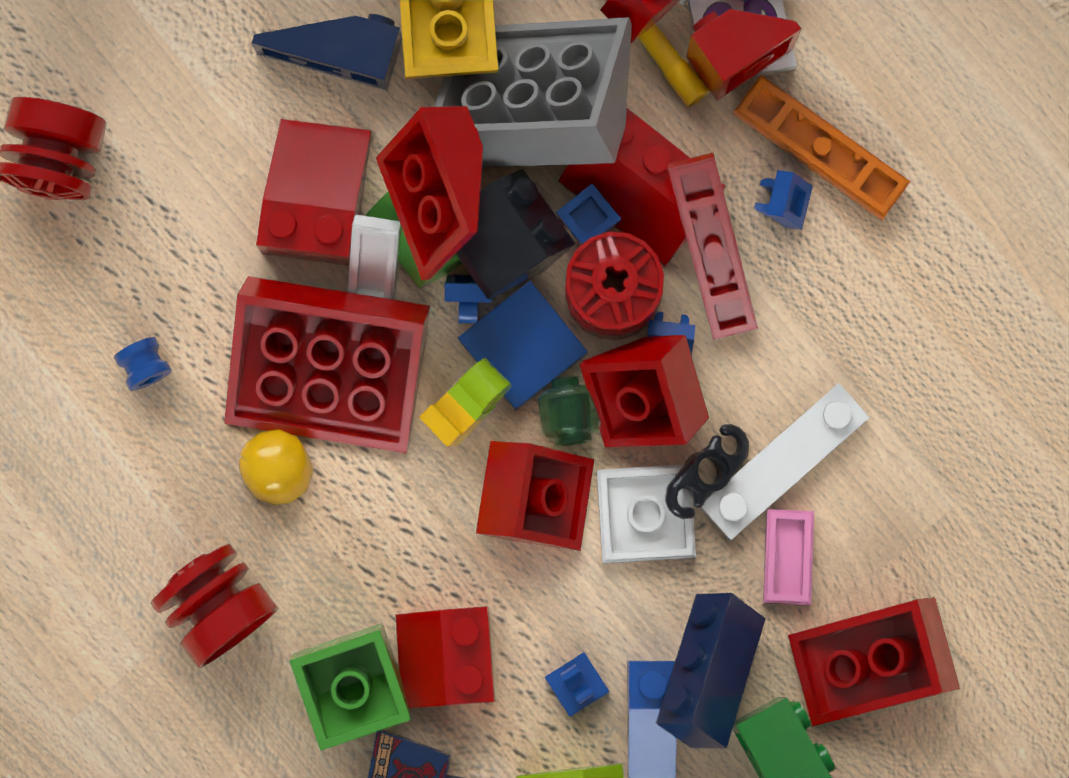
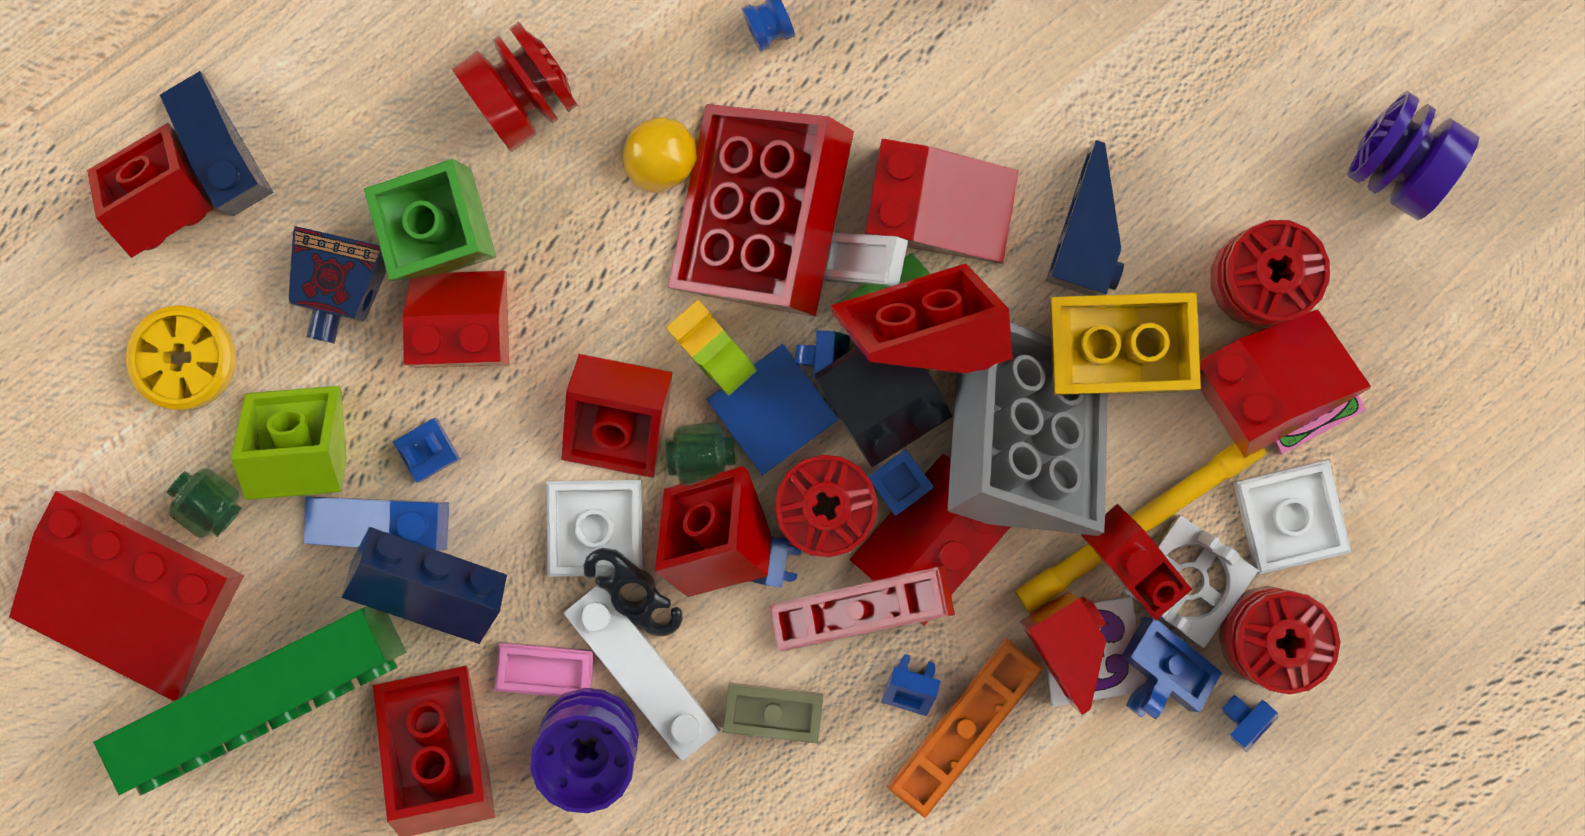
camera: 95 degrees right, 5 degrees up
(817, 331) = (773, 712): none -> olive plate
(887, 506) = (592, 774): none -> dark purple wheel

